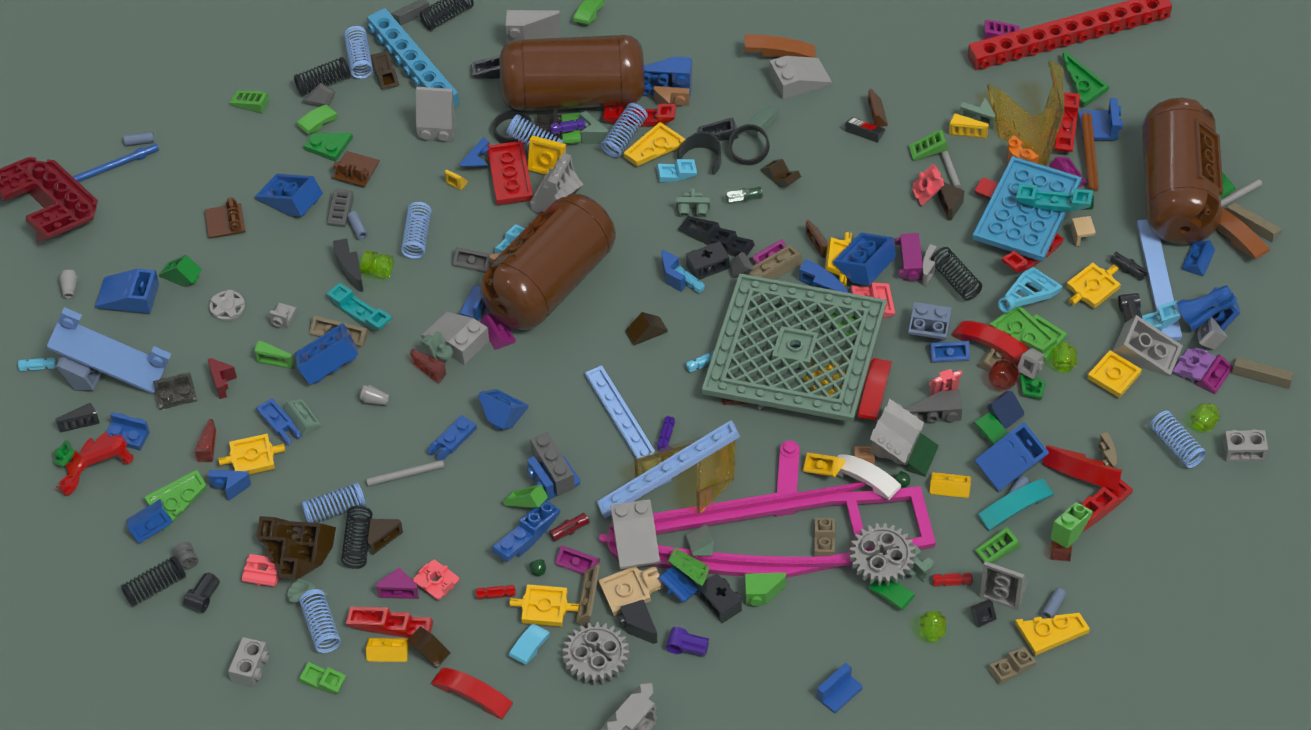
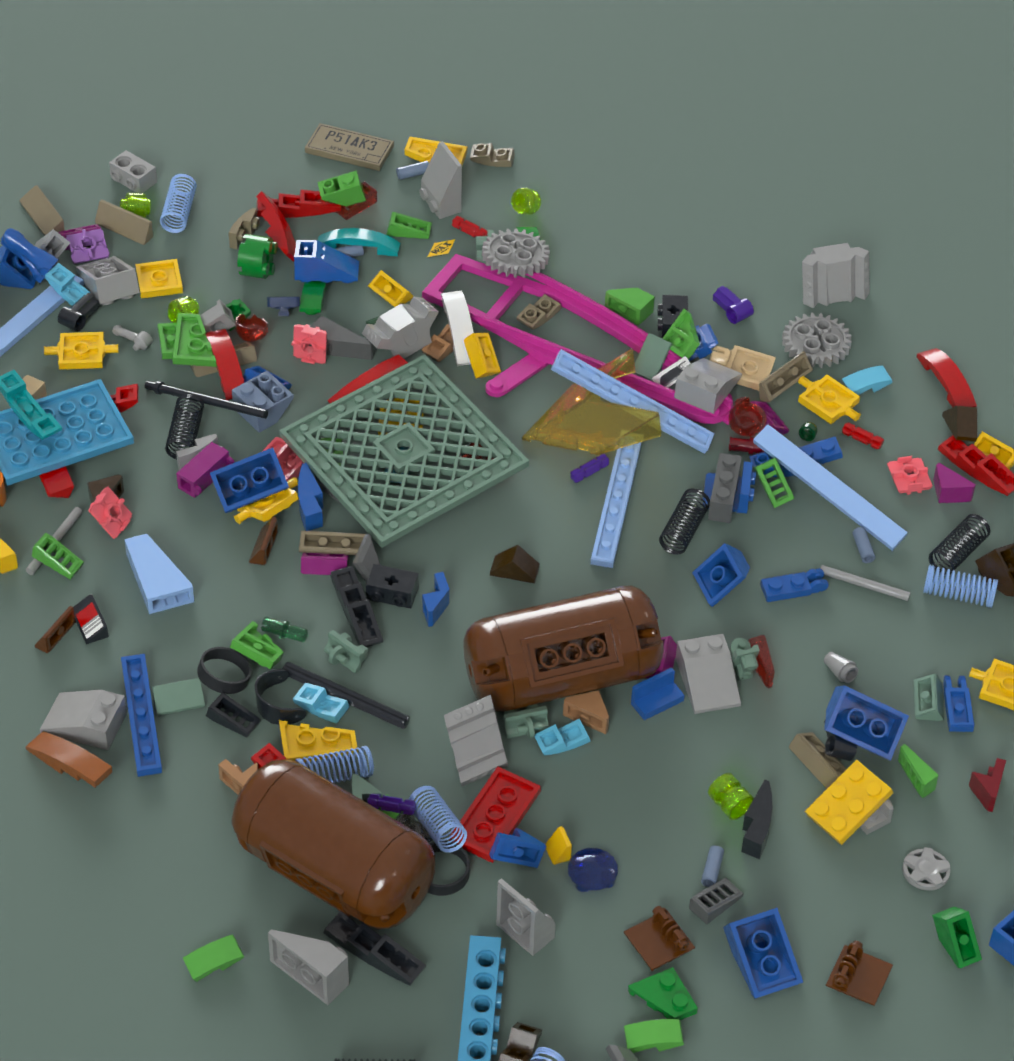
camera: 145 degrees left, 5 degrees down
(300, 303) = (848, 802): none -> yellow plate
(357, 309) = (784, 762): teal slope -> none
(382, 533) = (929, 535): dark brown slope -> none
(406, 231) = (674, 795): light blue piece -> none
(426, 181) = (592, 869): none -> clear blue dish
(427, 500) = (863, 545): none -> sand blue axle
(471, 259) = (618, 749): dark grey slope -> none
(480, 513) = (830, 487): none -> light blue tile
(544, 154) = (444, 787): yellow plate -> none
(560, 411) = (667, 531): none -> black piece
(584, 534) = (746, 418): none -> clear red cap
(638, 621) = (760, 337): black slope -> none
(665, 184) = (354, 699): none -> black axle
(668, 73) = (216, 785): blue slope -> none
(668, 543) = (669, 375): none -> sticker
(691, 280) = (425, 581): medium azure axle -> none
(699, 362) = (491, 506): medium azure axle -> none
(748, 173) = (257, 647): none -> bright green wing
(770, 97) = (141, 715): none -> blue plate
(779, 173) = (224, 624): dark brown slope -> none
(838, 689) = (642, 215): blue panel -> none
(858, 174) = (157, 576): none -> light blue slope
(955, 297) = (160, 388): none -> black bar
(957, 550) = (441, 248): none -> yellow sticker
(983, 612) = (475, 190): black tile -> none
(1034, 278) = (121, 370): medium azure plate -> none
(1063, 426) = (257, 256): none -> green brick
(1065, 320) = (141, 340): none -> light grey piece
(1127, 593) = (349, 147): none -> dark tan tile
(1129, 265) = (29, 348): black pin -> none
(1192, 403) = (124, 222): none -> dark tan slope

